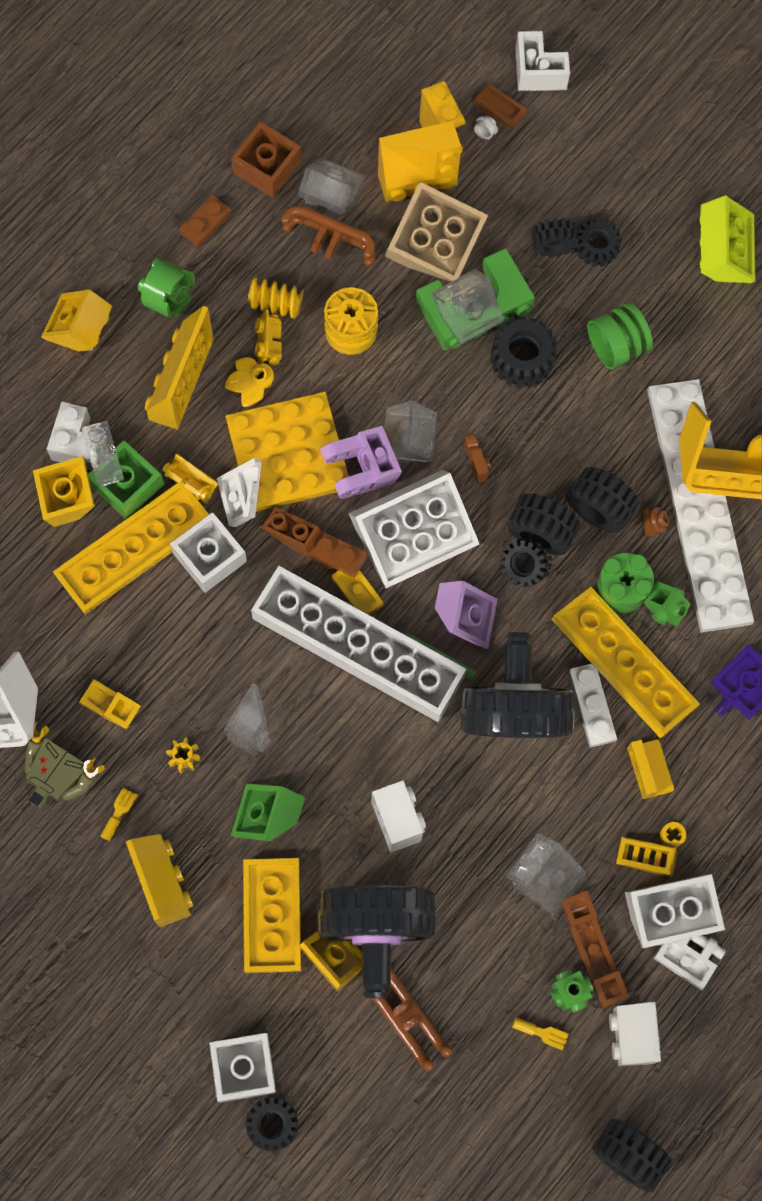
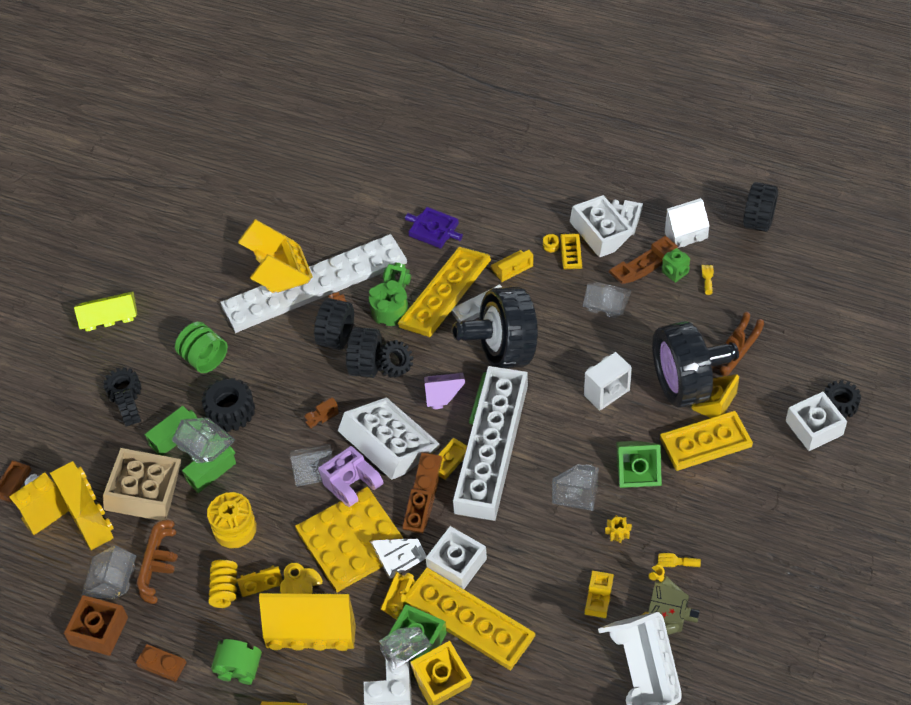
camera: 100 degrees left, 20 degrees down
(160, 879) = (716, 512): yellow slope -> none

